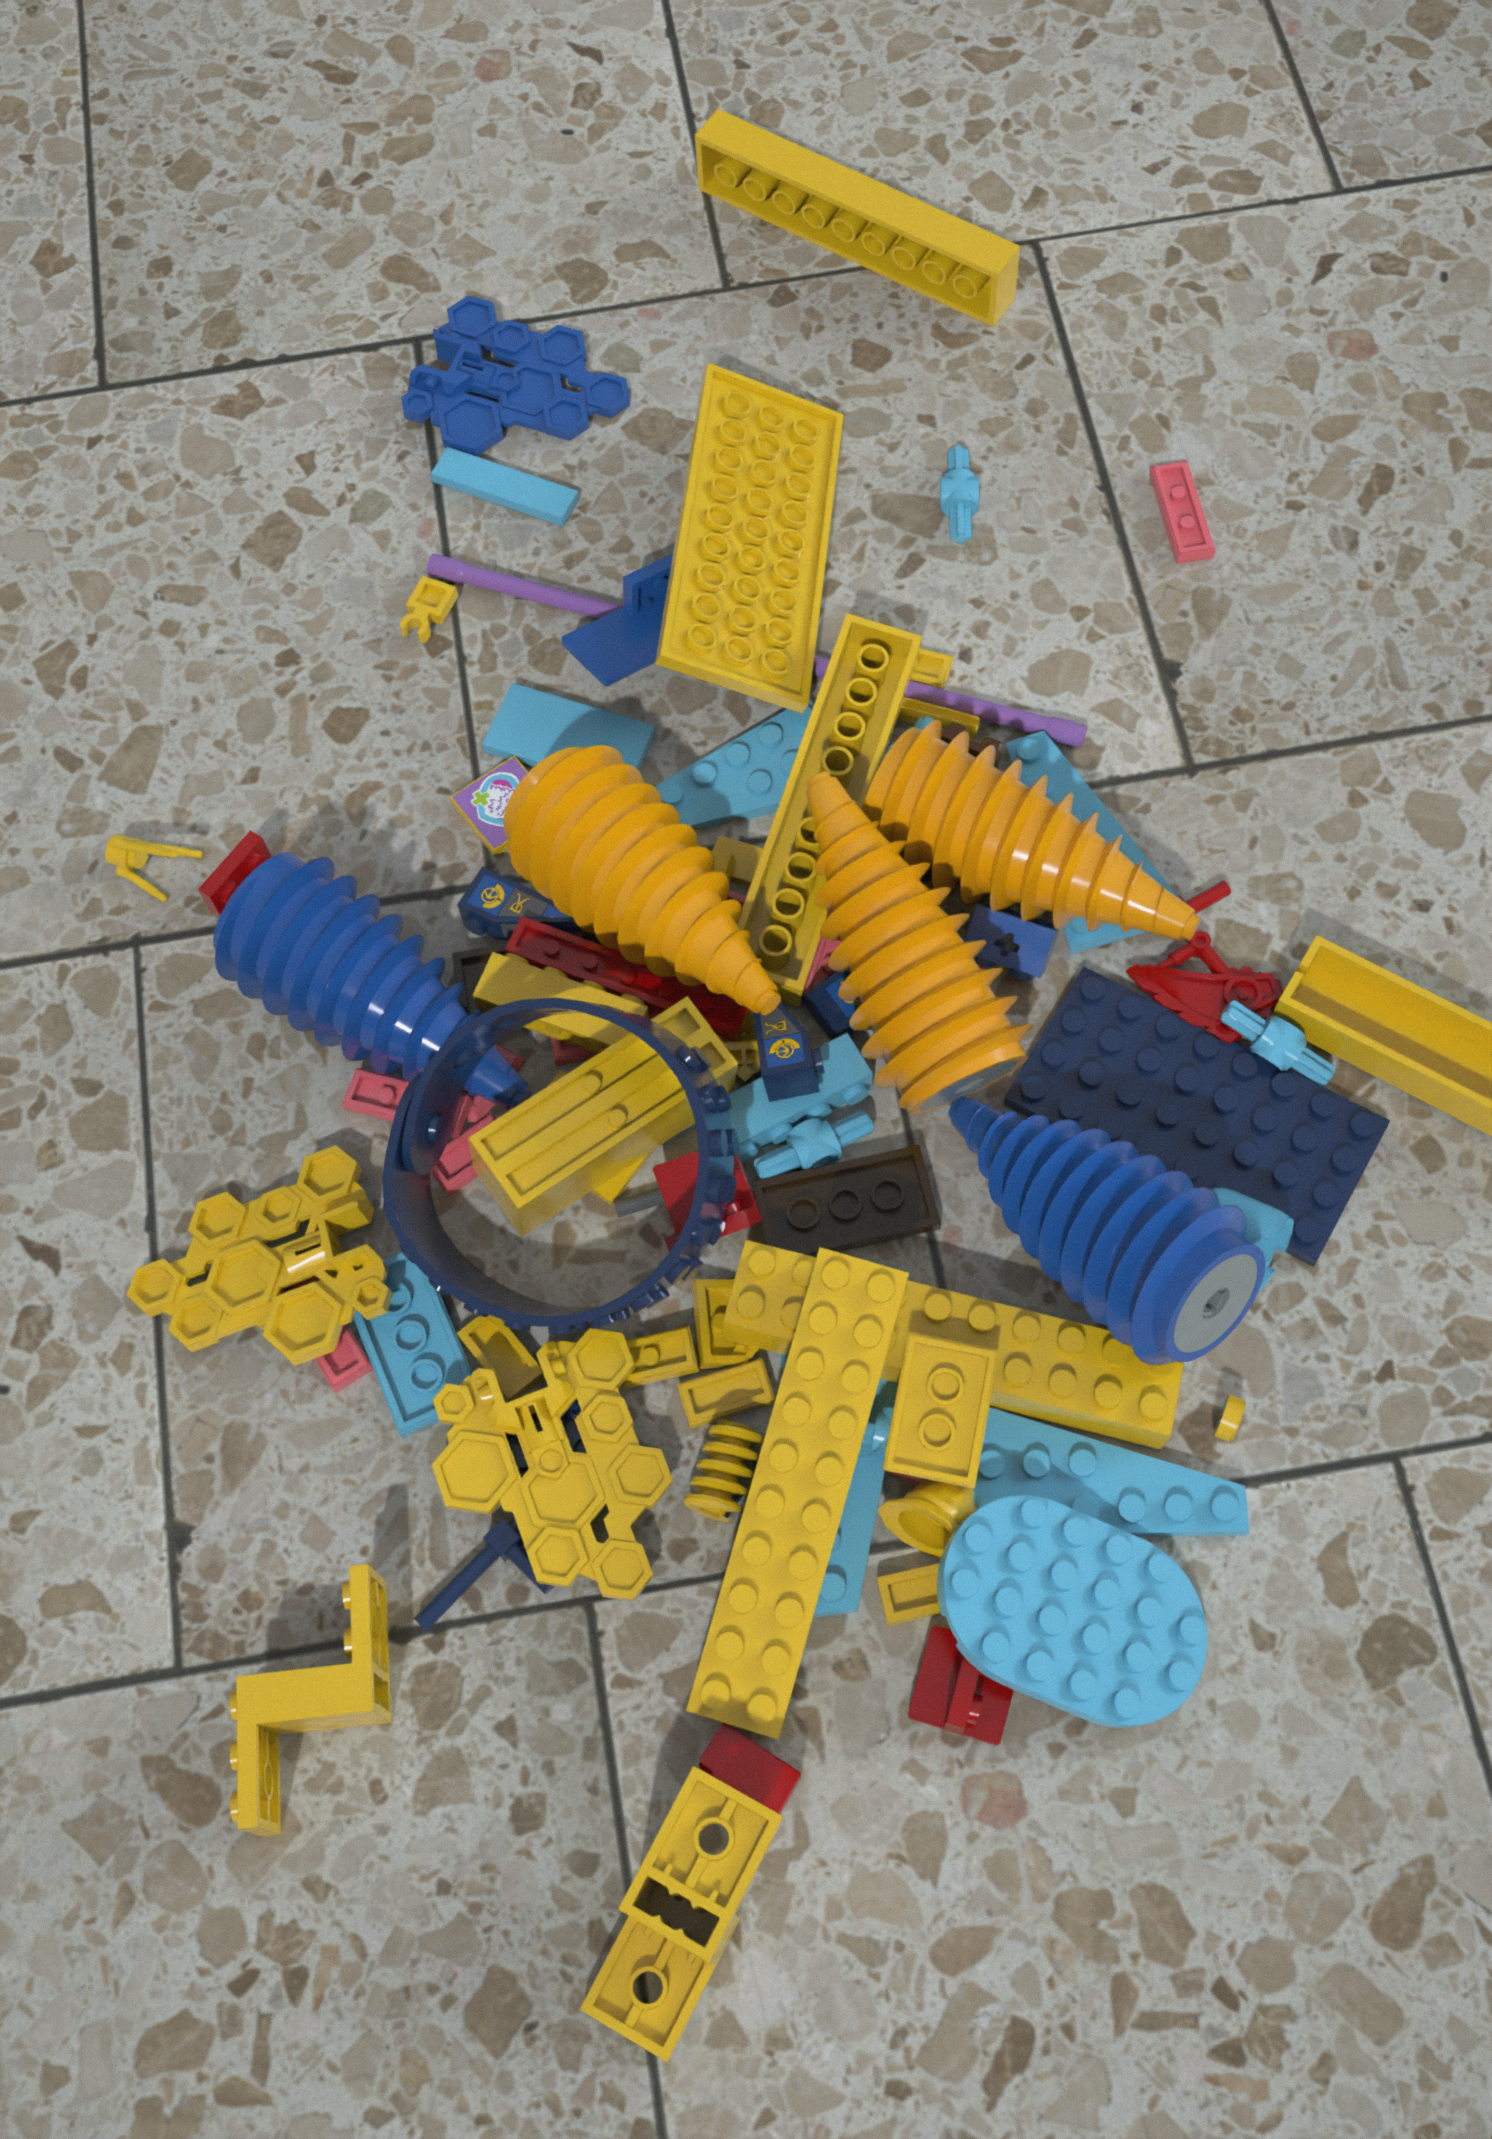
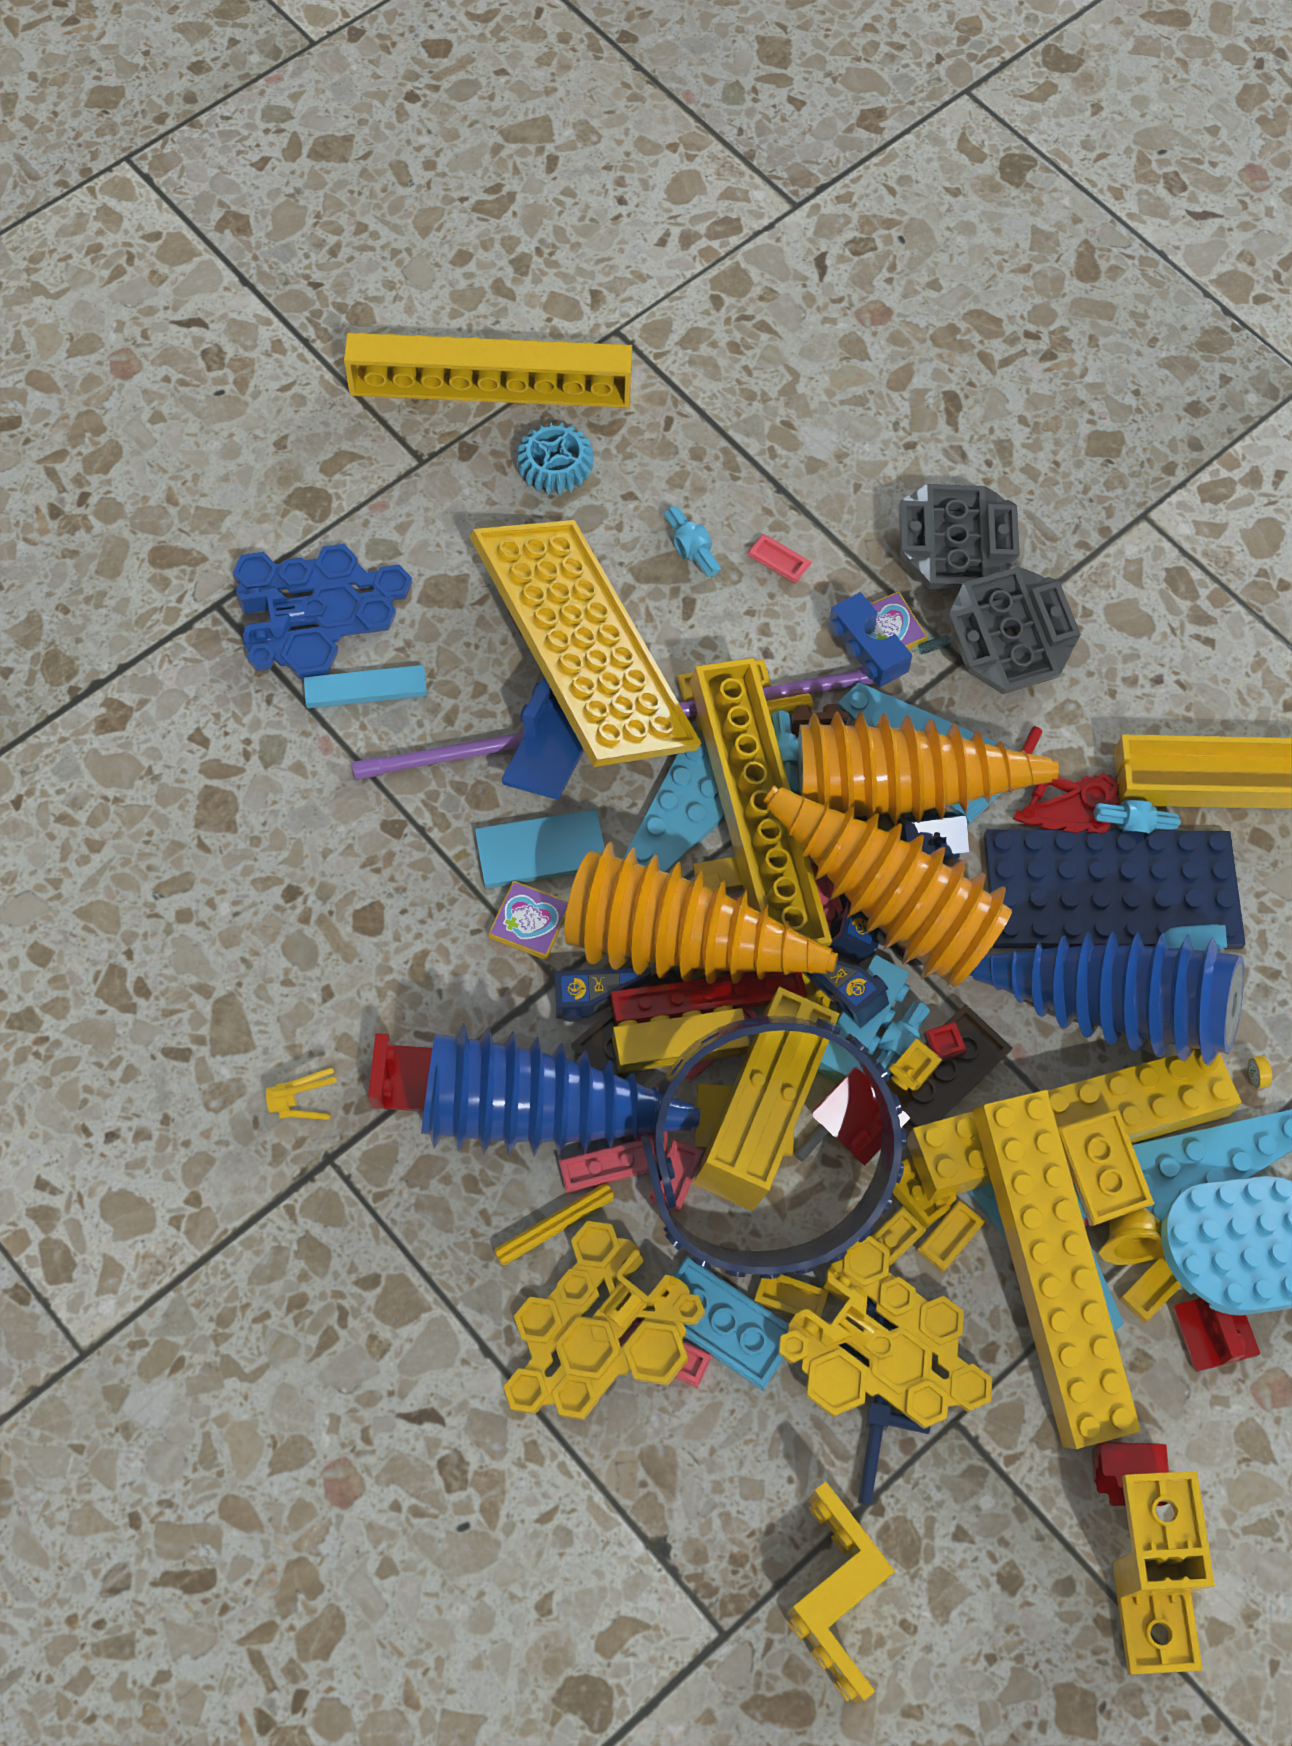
camera: 40 degrees left, 0 degrees up
(307, 1132) = (554, 1224): none -> yellow axle
(428, 604) = (374, 802): yellow plate -> none
(722, 1470) = (987, 1285): yellow piece -> none
(803, 1177) = (914, 1066): none -> yellow bracket
(858, 338) = (551, 448): none -> medium azure gear
(862, 1172) = (945, 1041): none -> red tile
(1048, 557) = (779, 558): none -> coral tile
(1083, 713) = (881, 659): none -> blue arch
(1123, 689) = (897, 618): none -> tile
(1168, 734) = (934, 644): none -> clear light blue piece
(1181, 512) = (843, 484): coral tile -> none
(1270, 621) = (973, 516): none -> dark grey piece
(1270, 715) = (1030, 608): none -> dark grey piece

